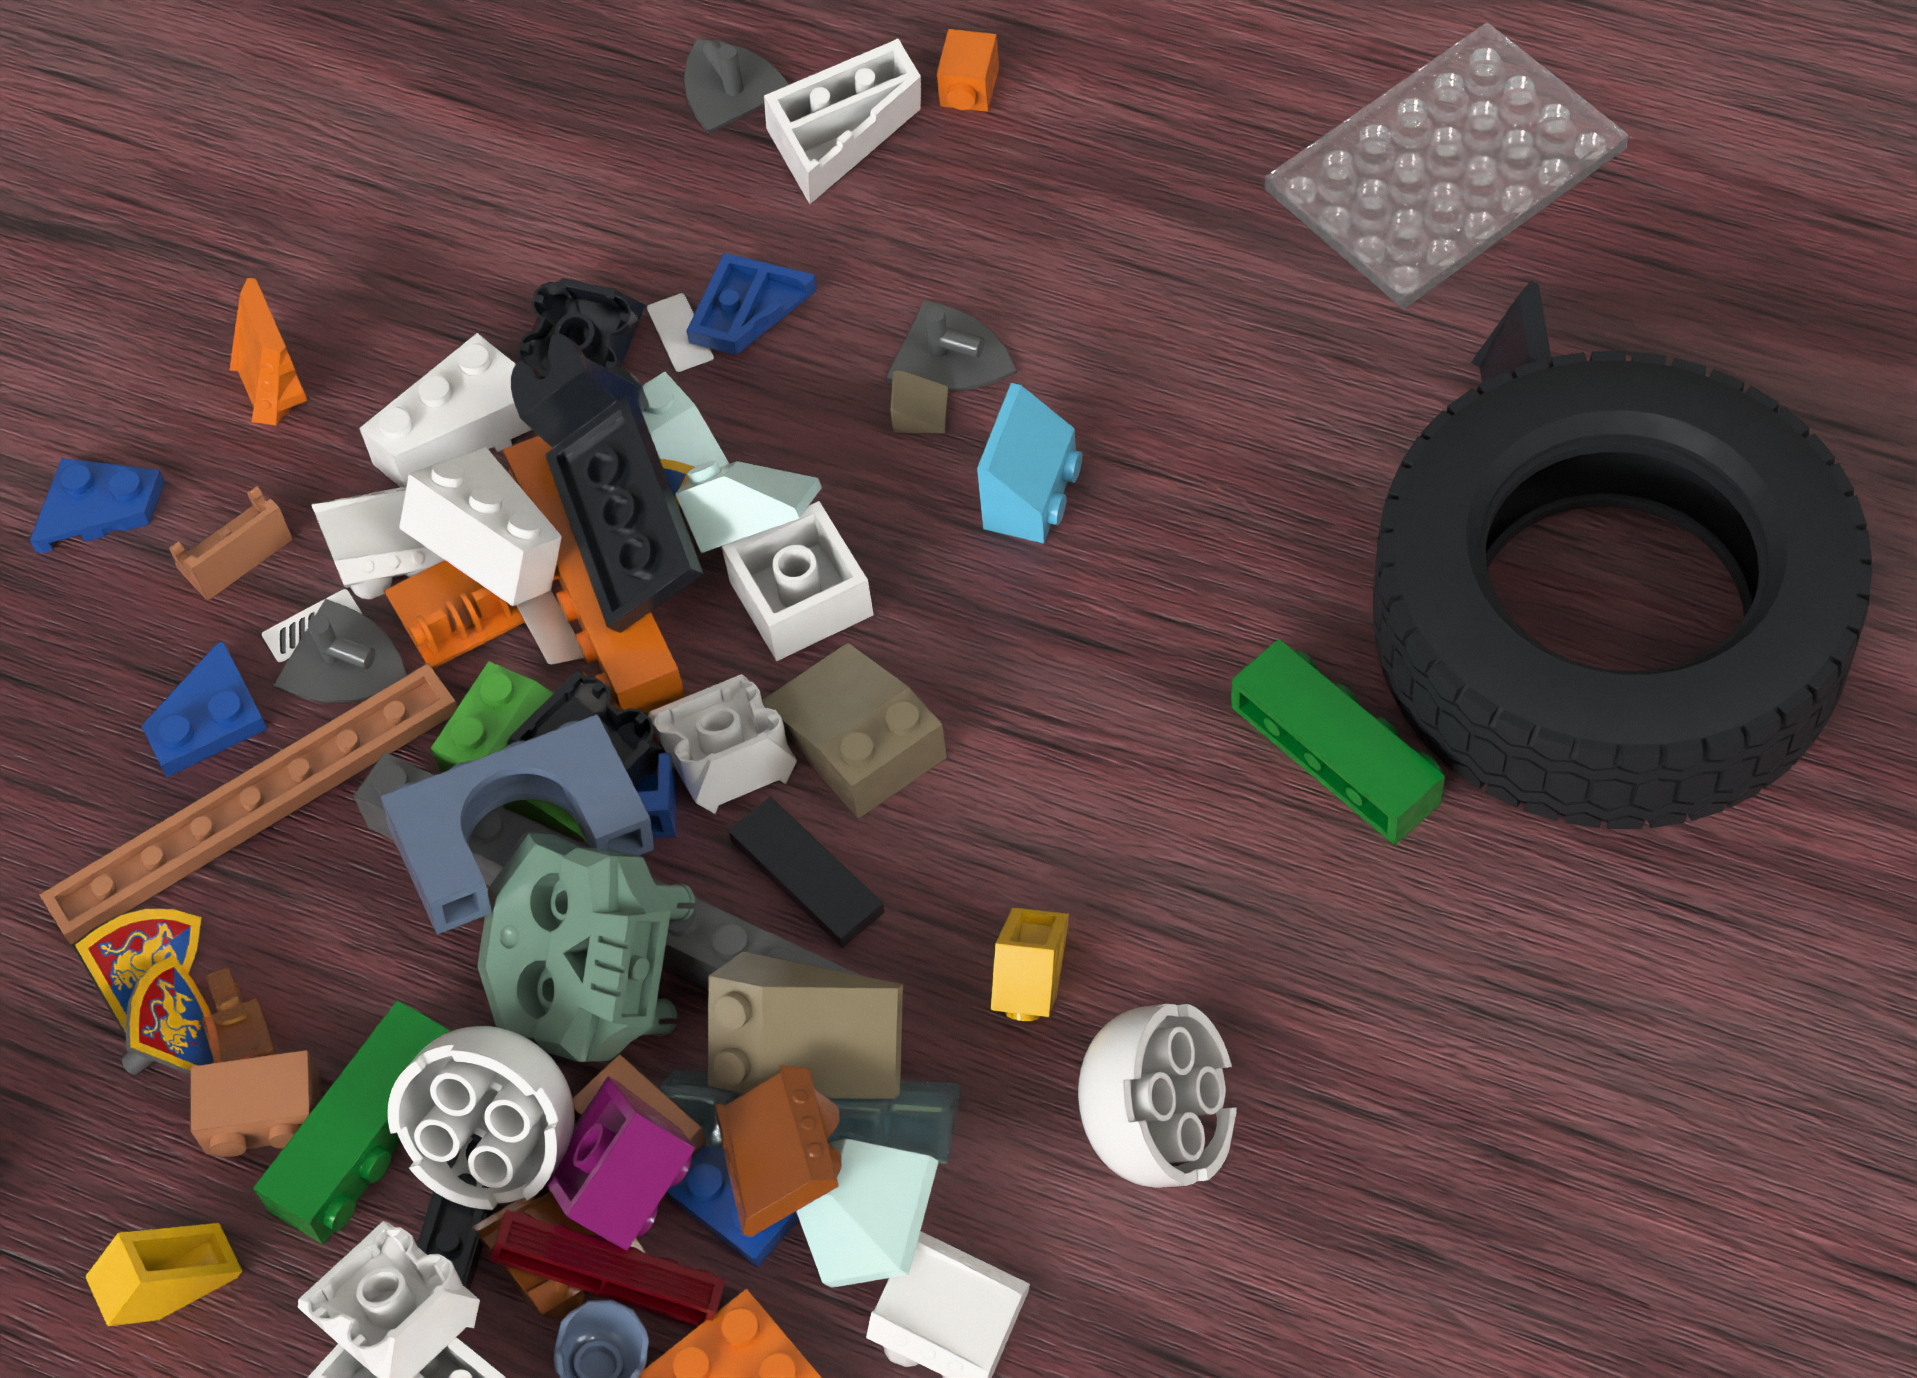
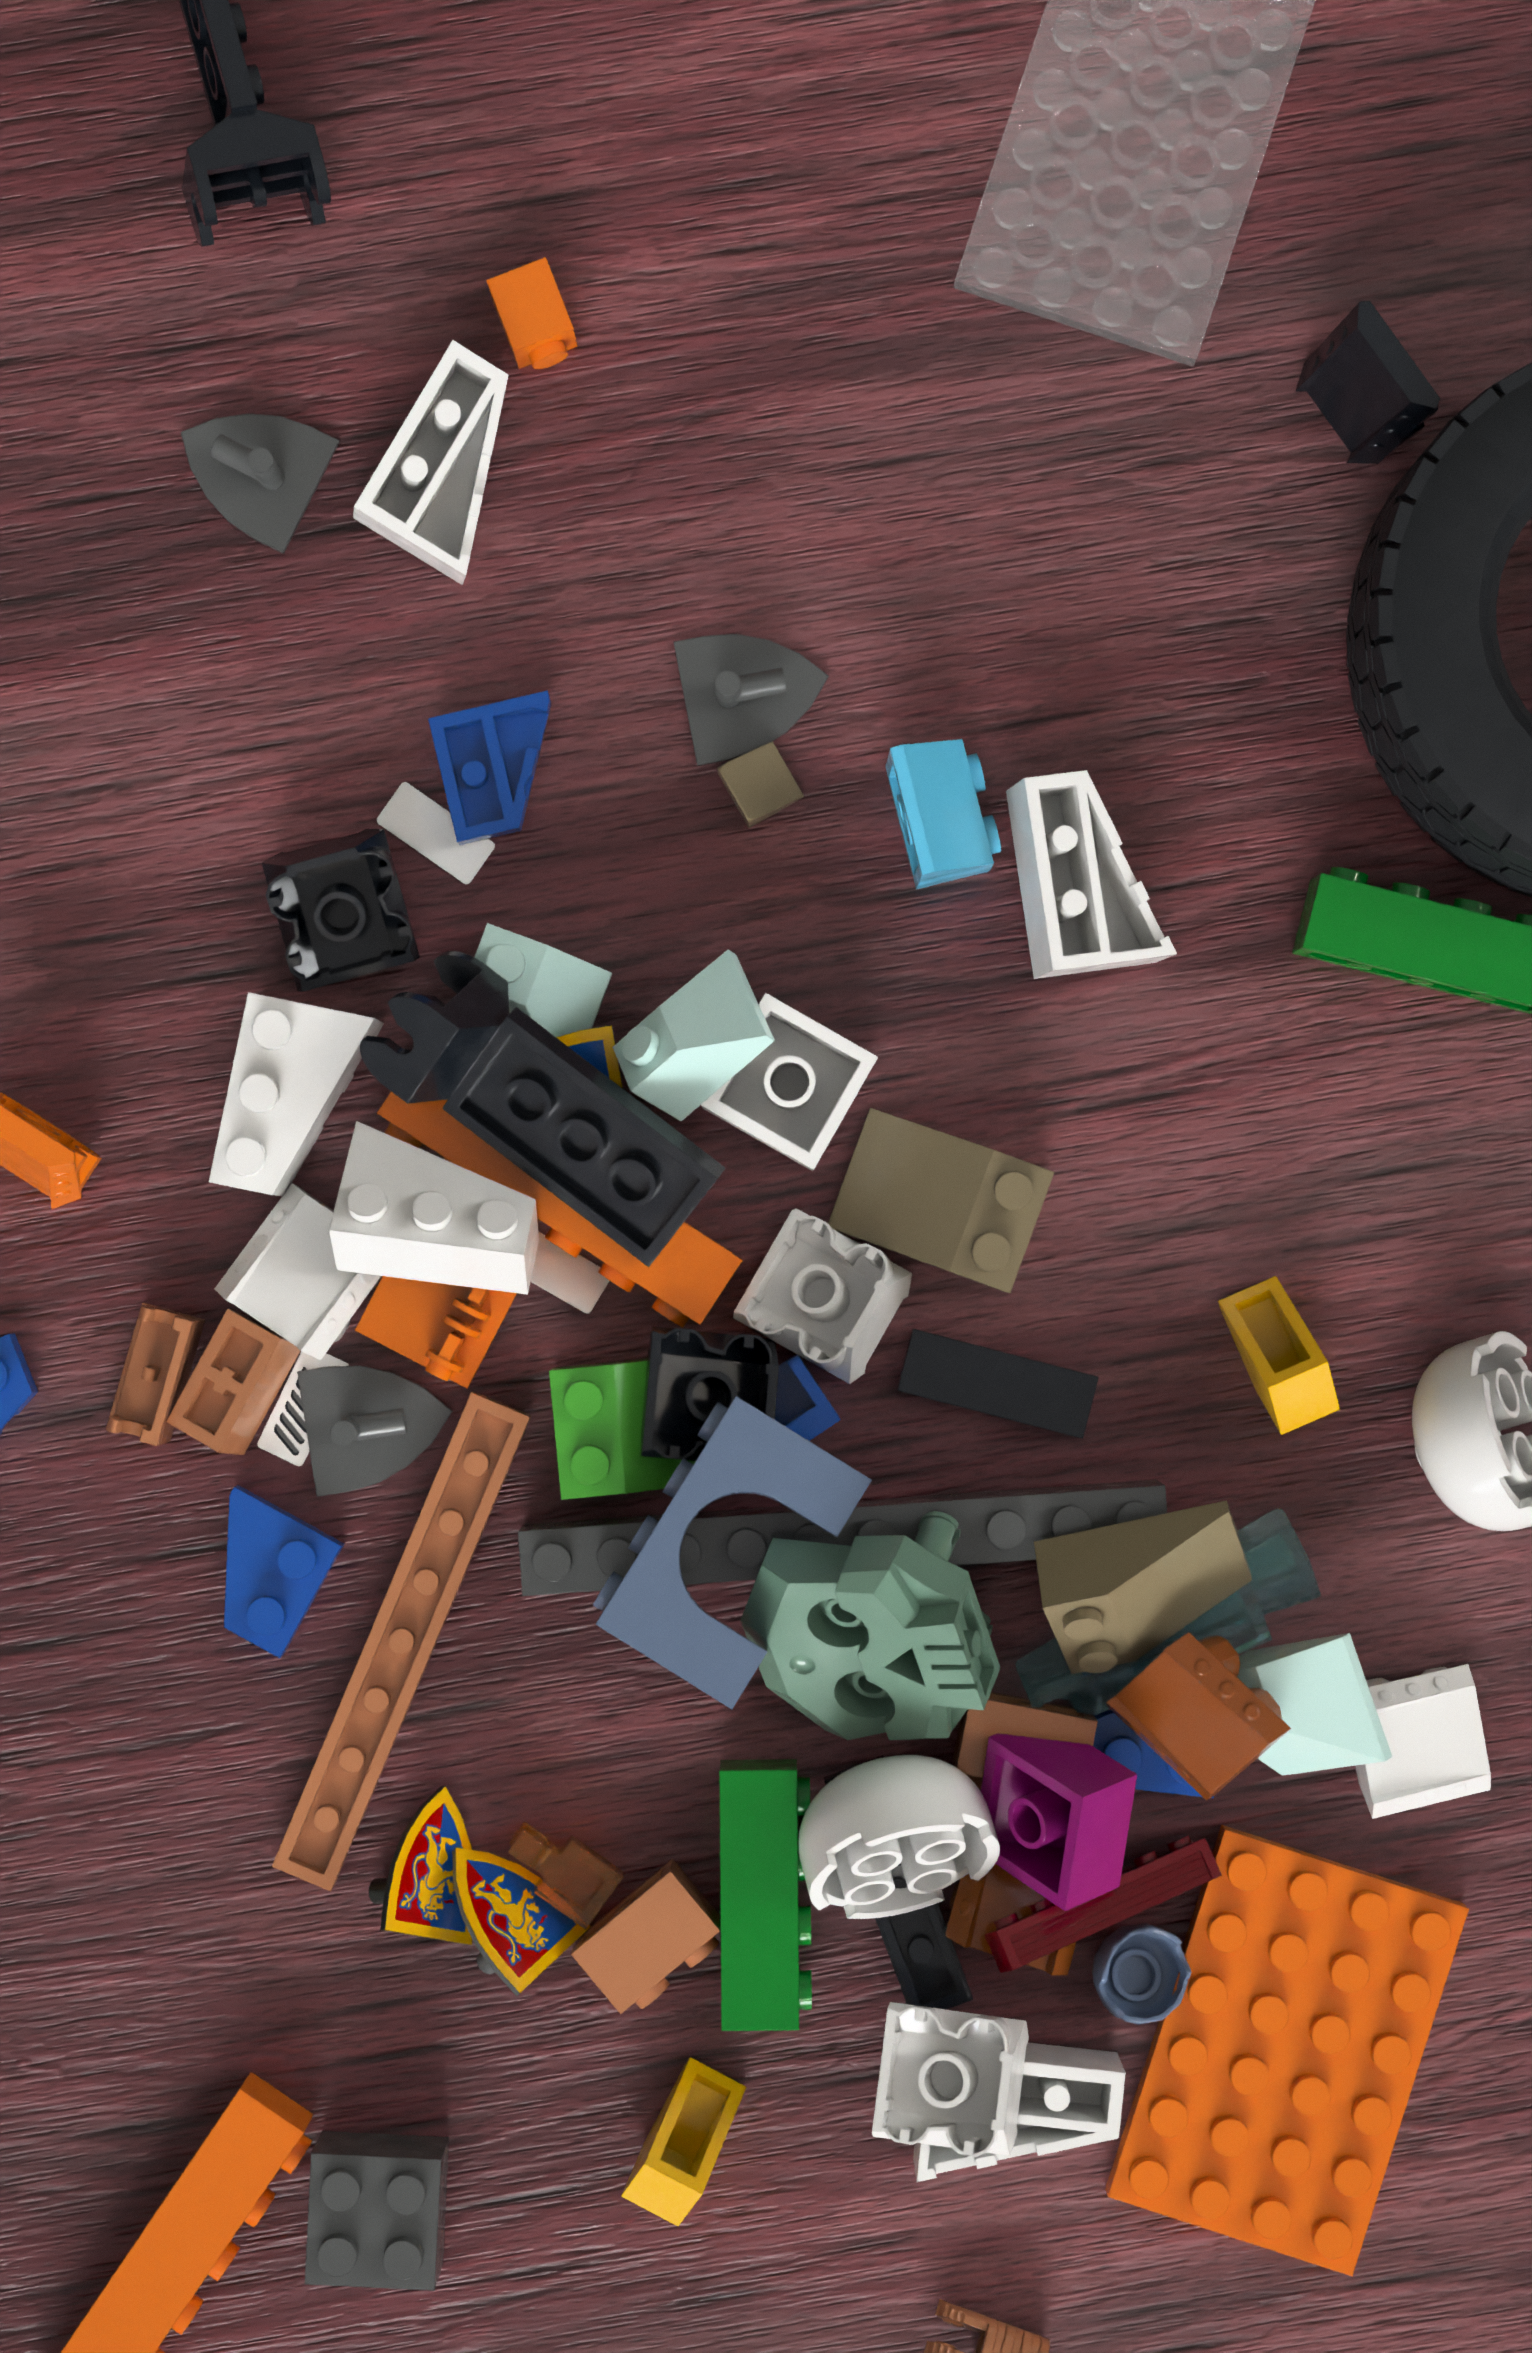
camera: 30 degrees left, 30 degrees up
(278, 575) = (233, 1384): none -> nougat hinge
(1093, 565) = (1076, 883): none -> white wedge

